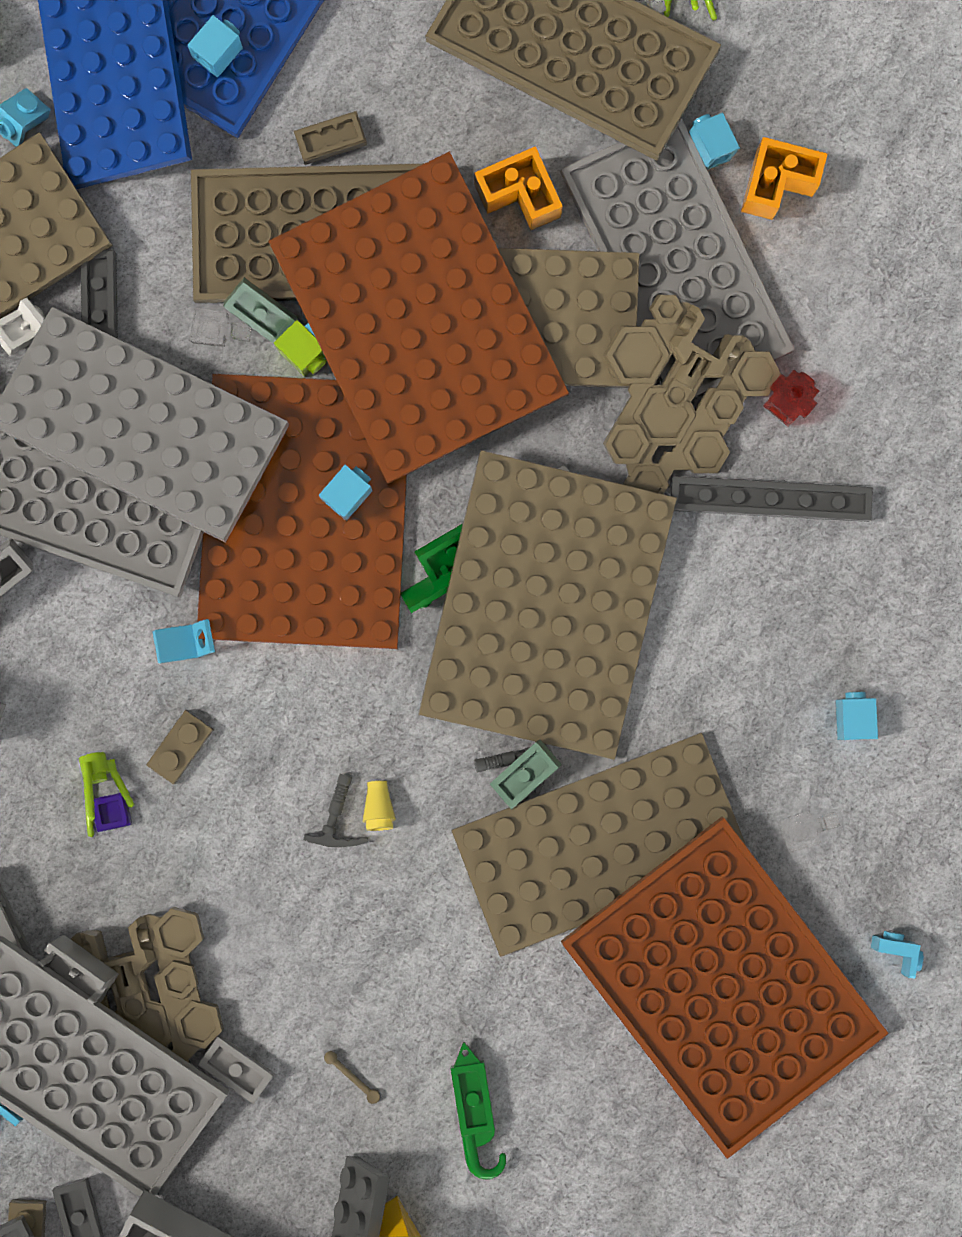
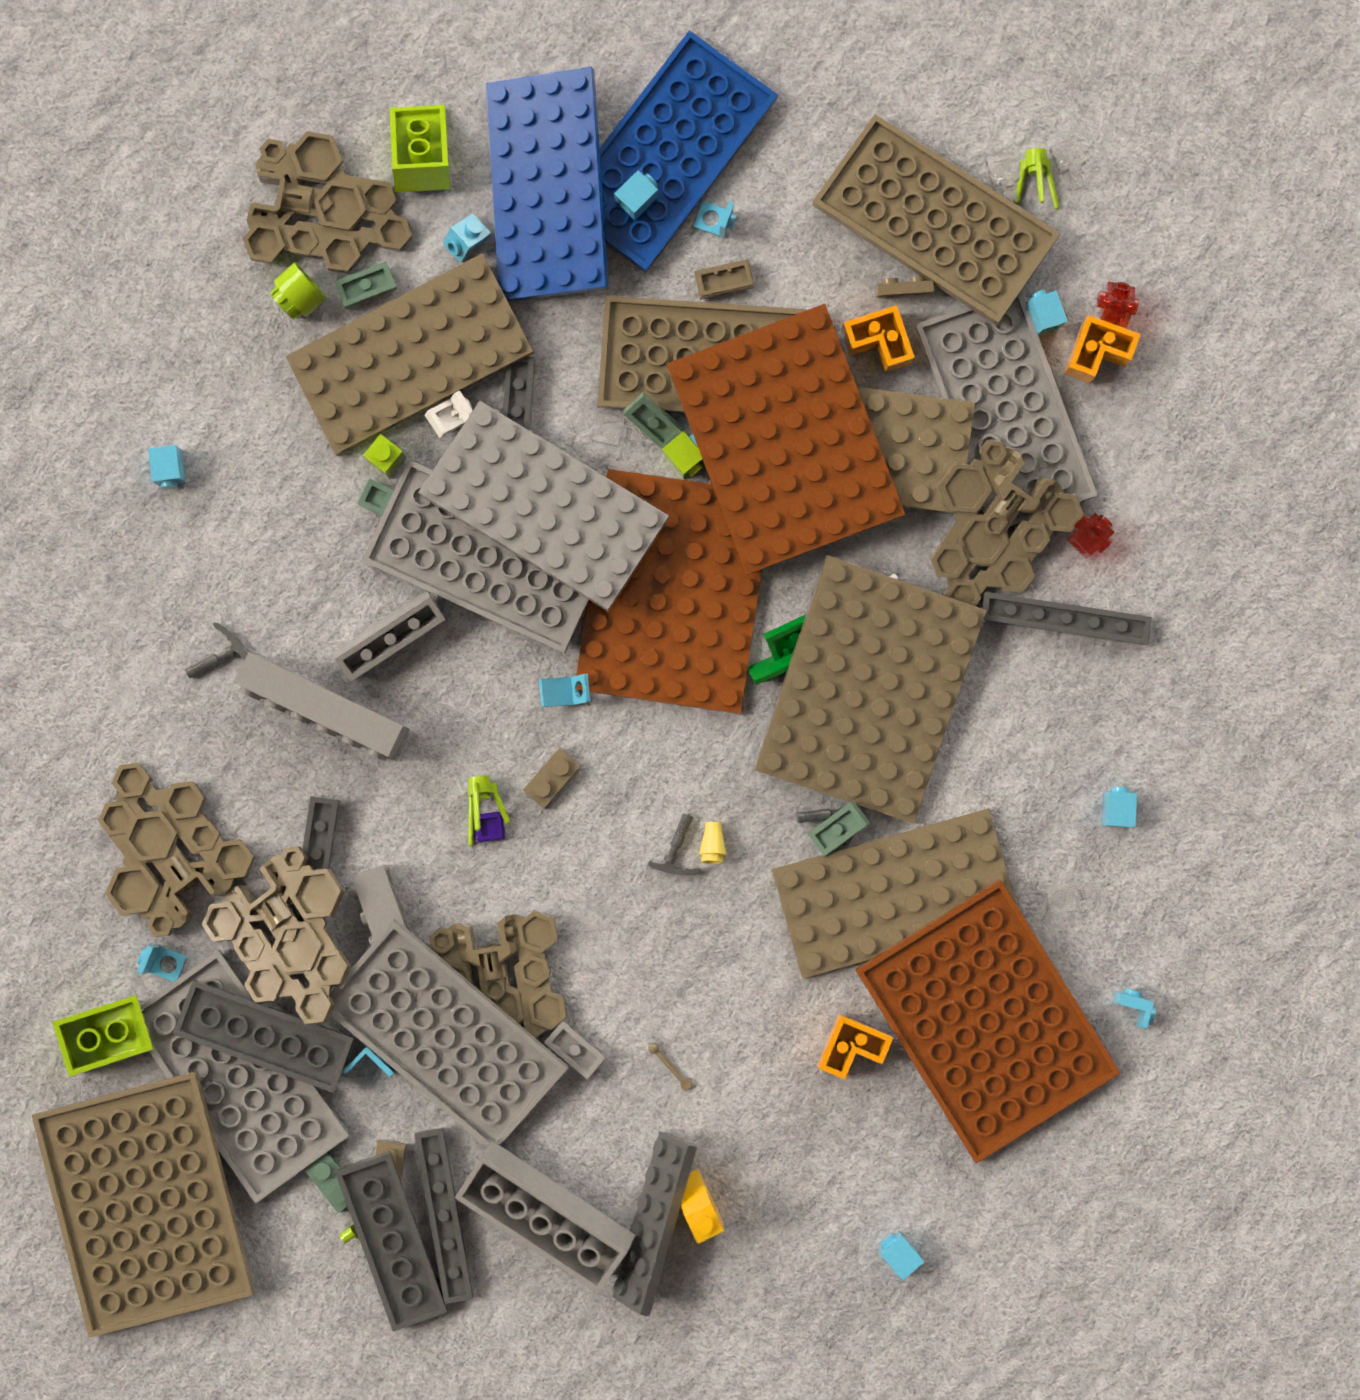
camera: 10 degrees right, 0 degrees up
(79, 968) = (455, 952): light grey hinge -> none
(326, 64) = (726, 219): none -> medium azure bracket
(346, 491) = (712, 578): medium azure brick -> none
(474, 1111) = (769, 1104): green plate -> none
(529, 128) = (915, 286): none -> dark tan plate
(562, 1024) = (846, 1040): none -> light orange brick
(796, 121) = (1117, 303): none -> clear red brick

